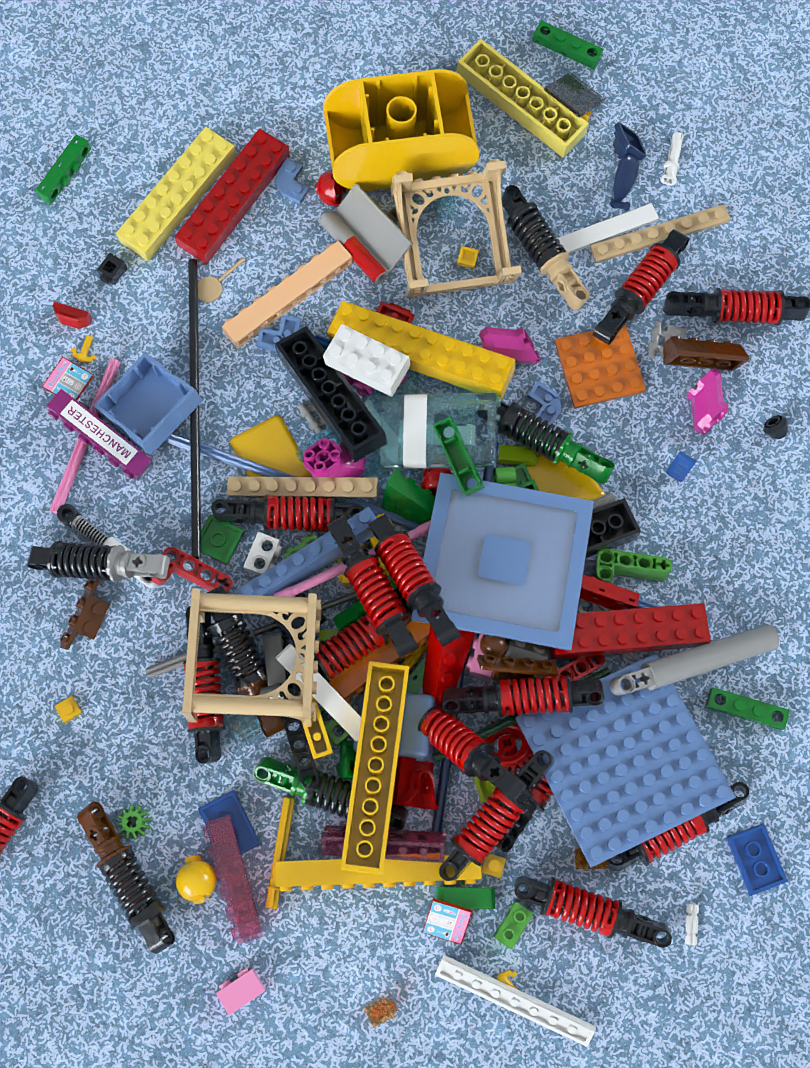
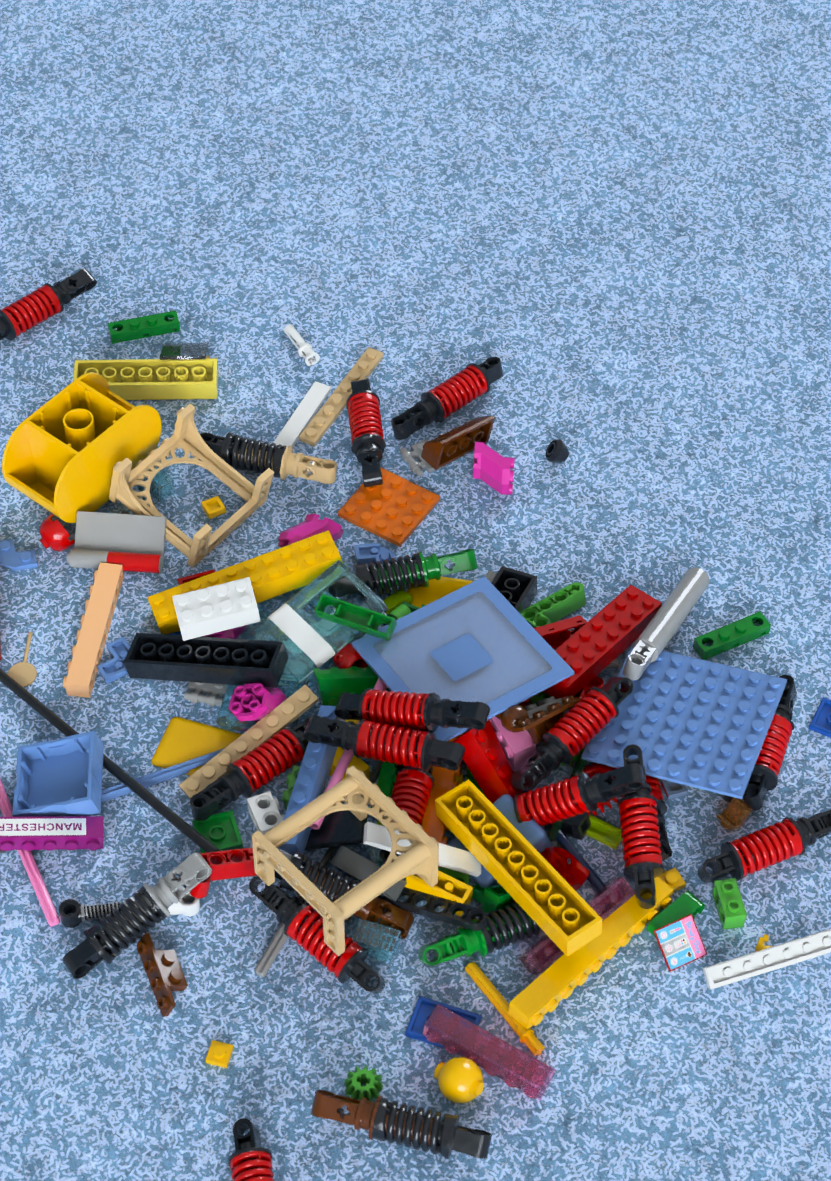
camera: 40 degrees left, 25 degrees down
(240, 991) = (580, 1127): bright pink brick -> none
(380, 1011) = (700, 1047): clear orange bracket -> none
(630, 150) = (268, 359): dark blue piece -> none
(681, 466) = (518, 522): blue slope -> none

